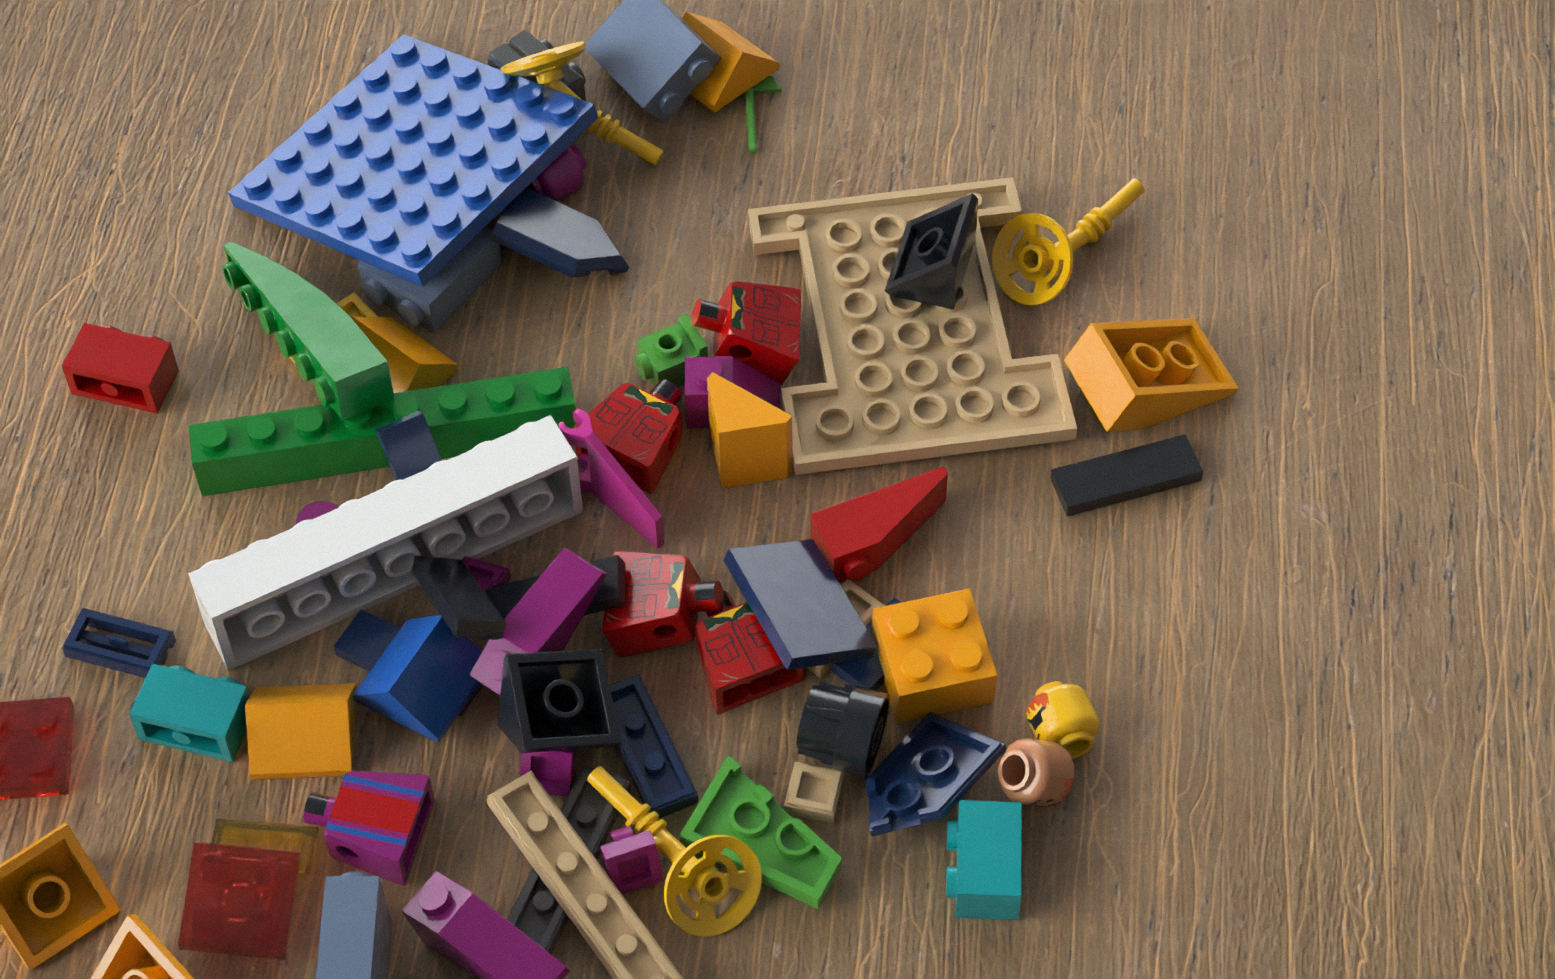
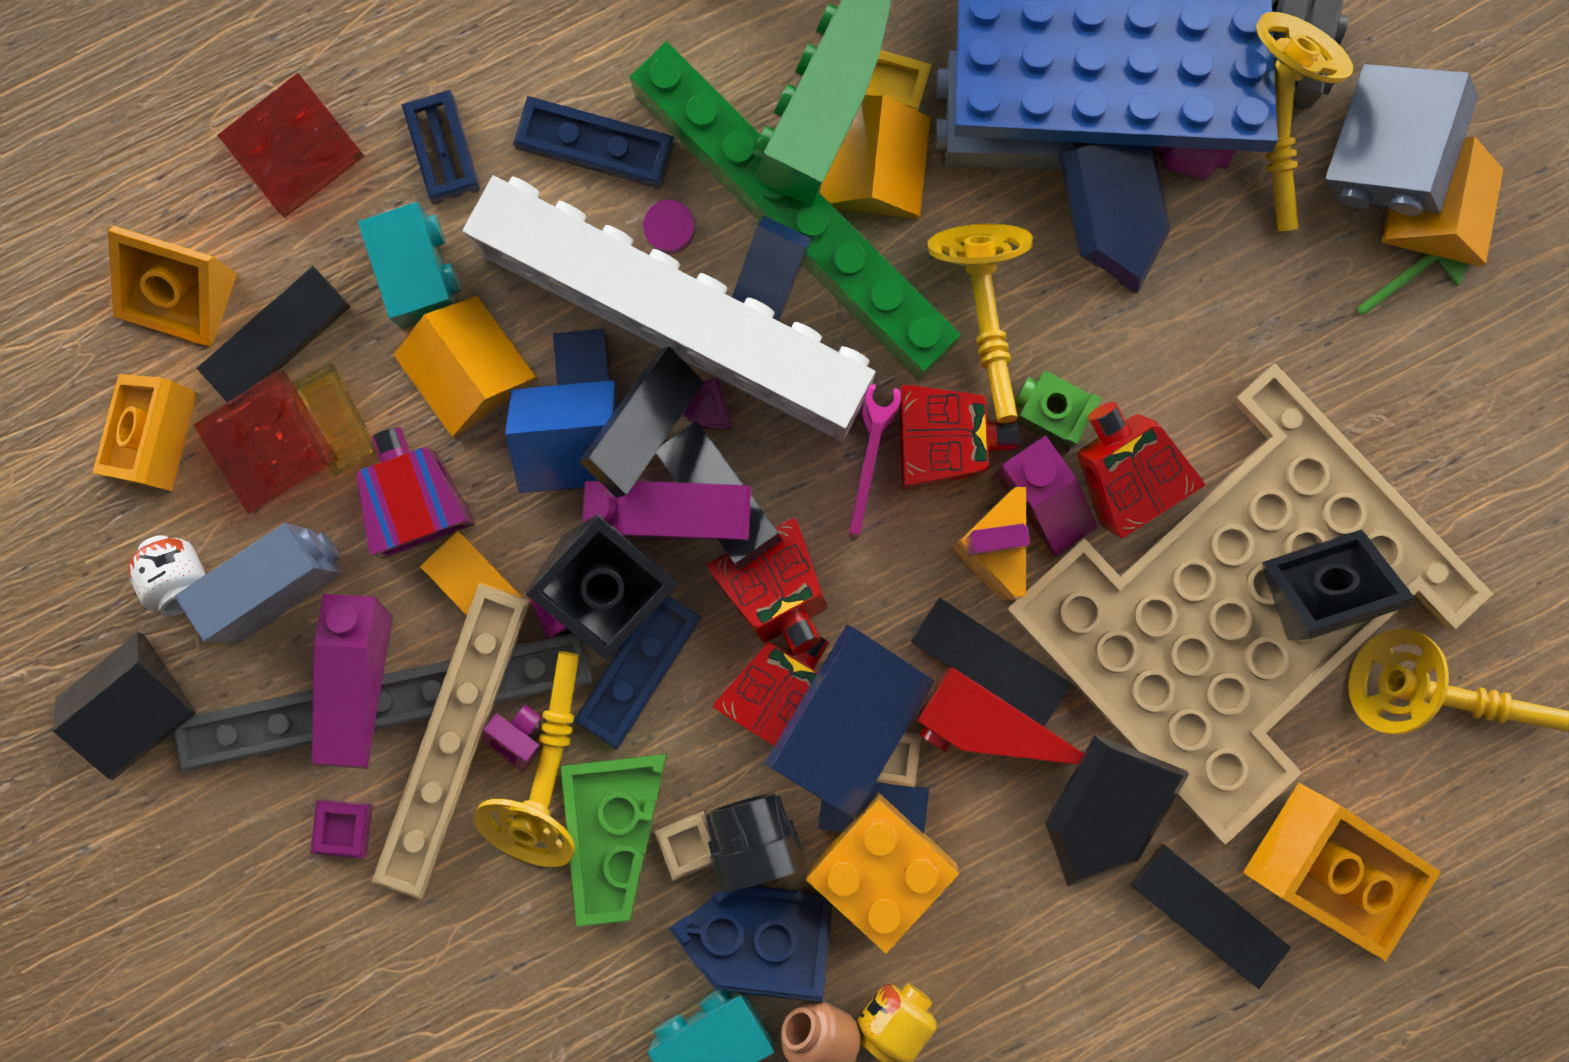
camera: 60 degrees right, 30 degrees up
(157, 852) = (274, 335): none -> black tile
(212, 537) = (594, 142): none -> dark blue tile
(467, 828) = (460, 568): none -> light orange tile
(521, 333) = (980, 260): none -> yellow dish
(736, 398) = (998, 539): none -> magenta tile
(789, 515) = (990, 661): none -> black tile
(996, 481) = (1110, 809): none -> black tile

